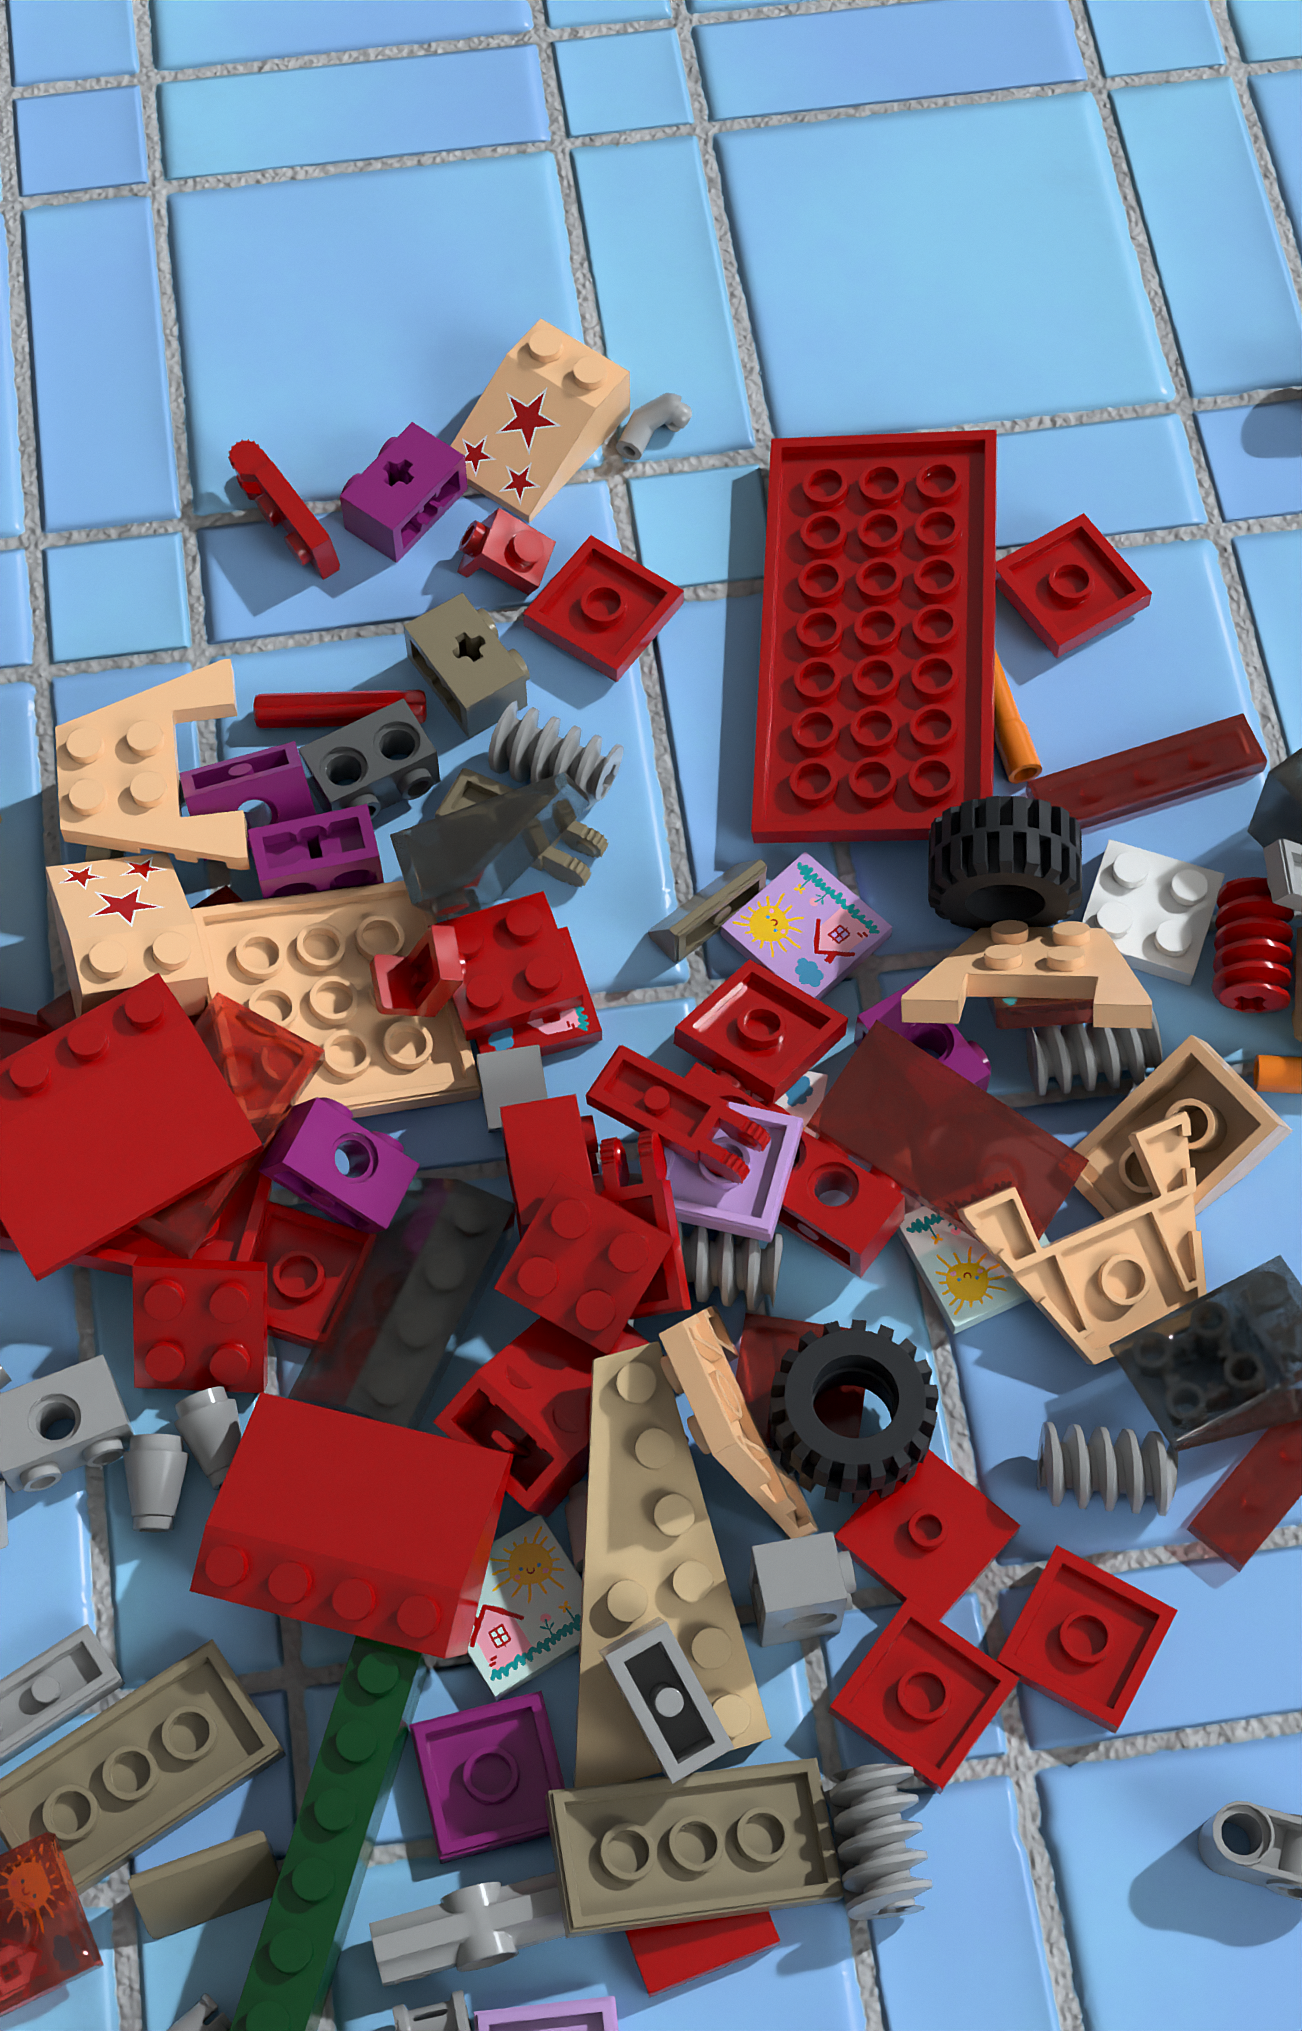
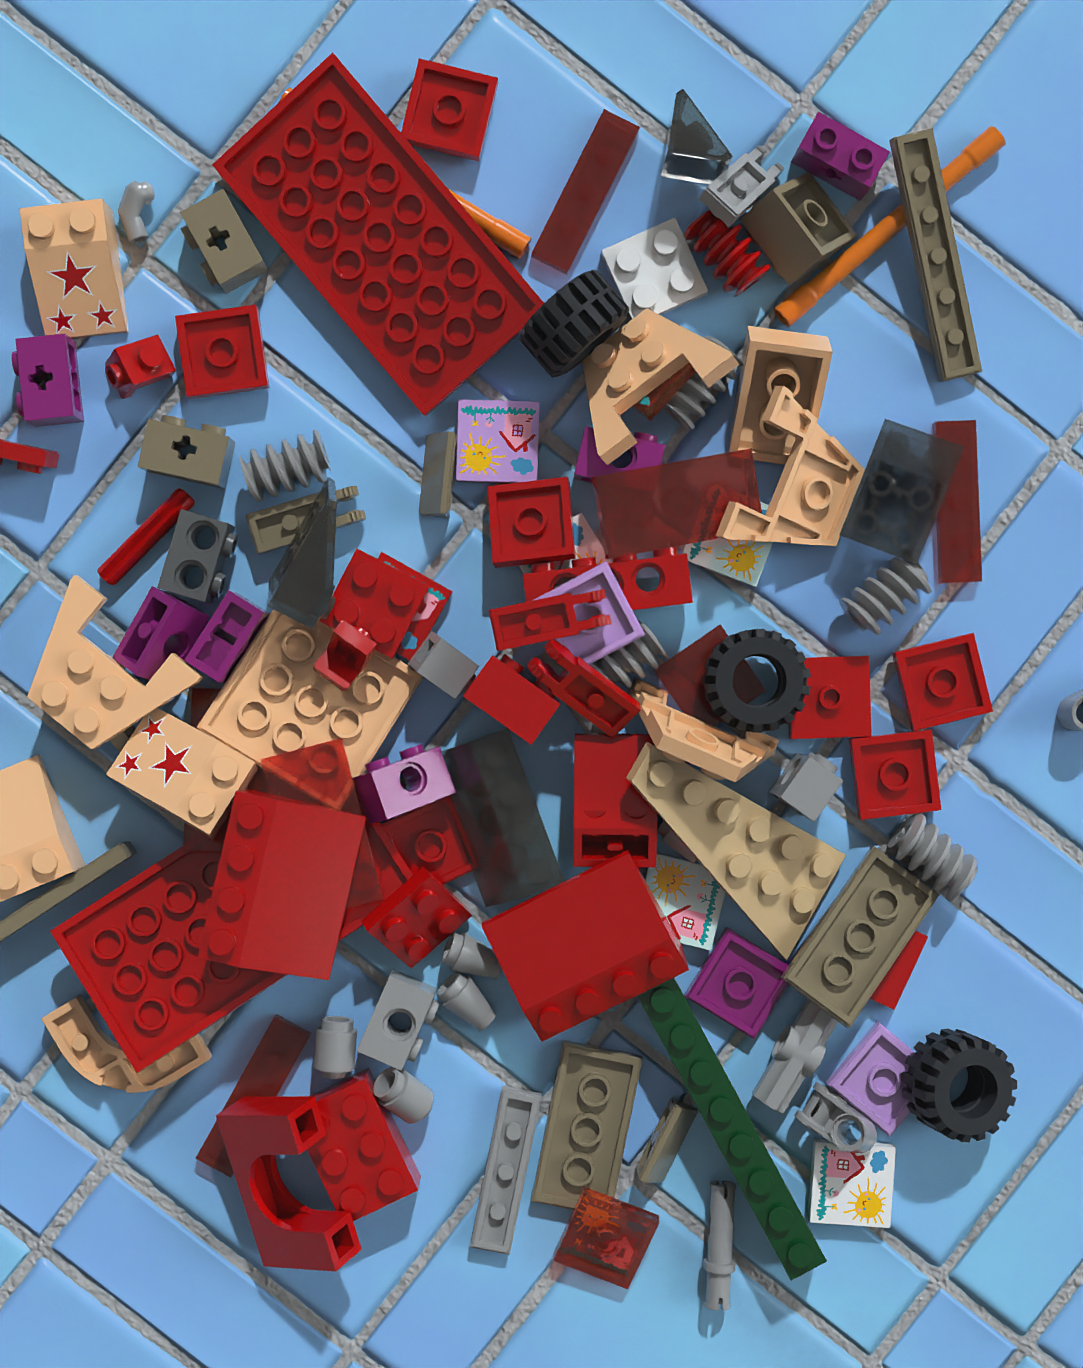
camera: 40 degrees left, 25 degrees up
(584, 1263) = (578, 735): red plate -> none
(666, 1699) = (802, 897): light grey brick -> none
(710, 514) = (218, 218): none -> dark tan brick

